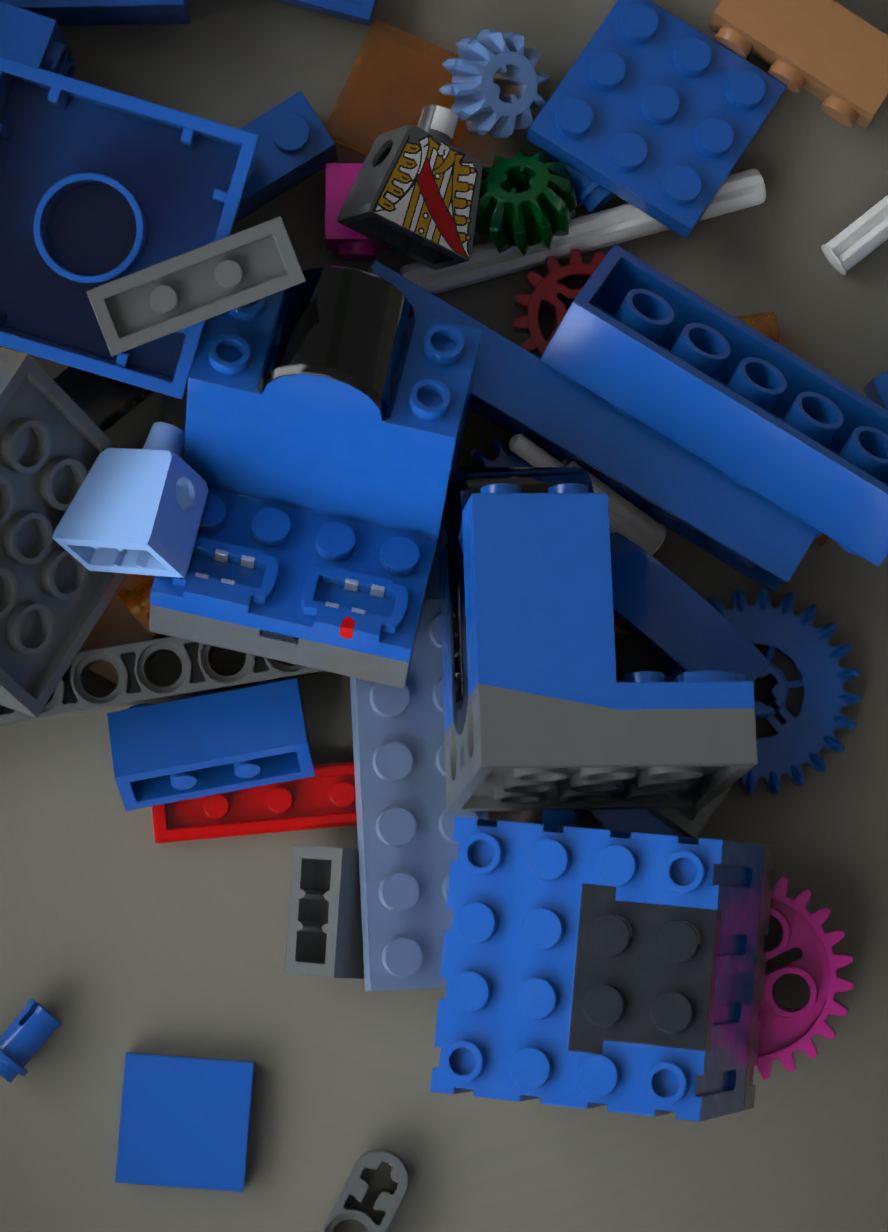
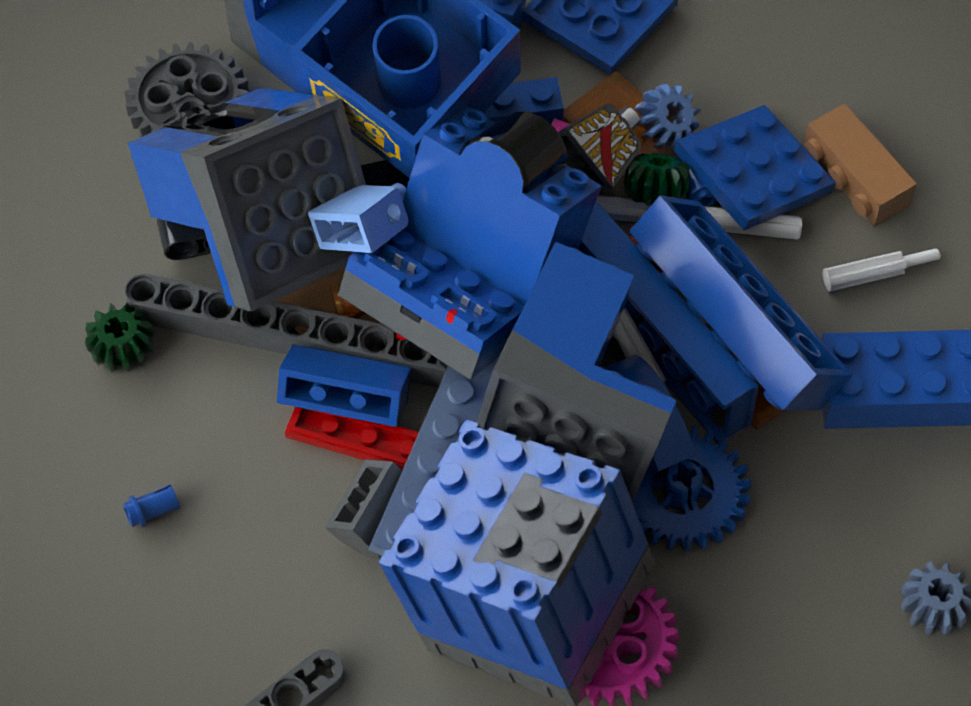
camera: 20 degrees right, 25 degrees down
(185, 1121) = (223, 592): blue tile -> none
(195, 286) = (449, 85): dark grey plate -> none

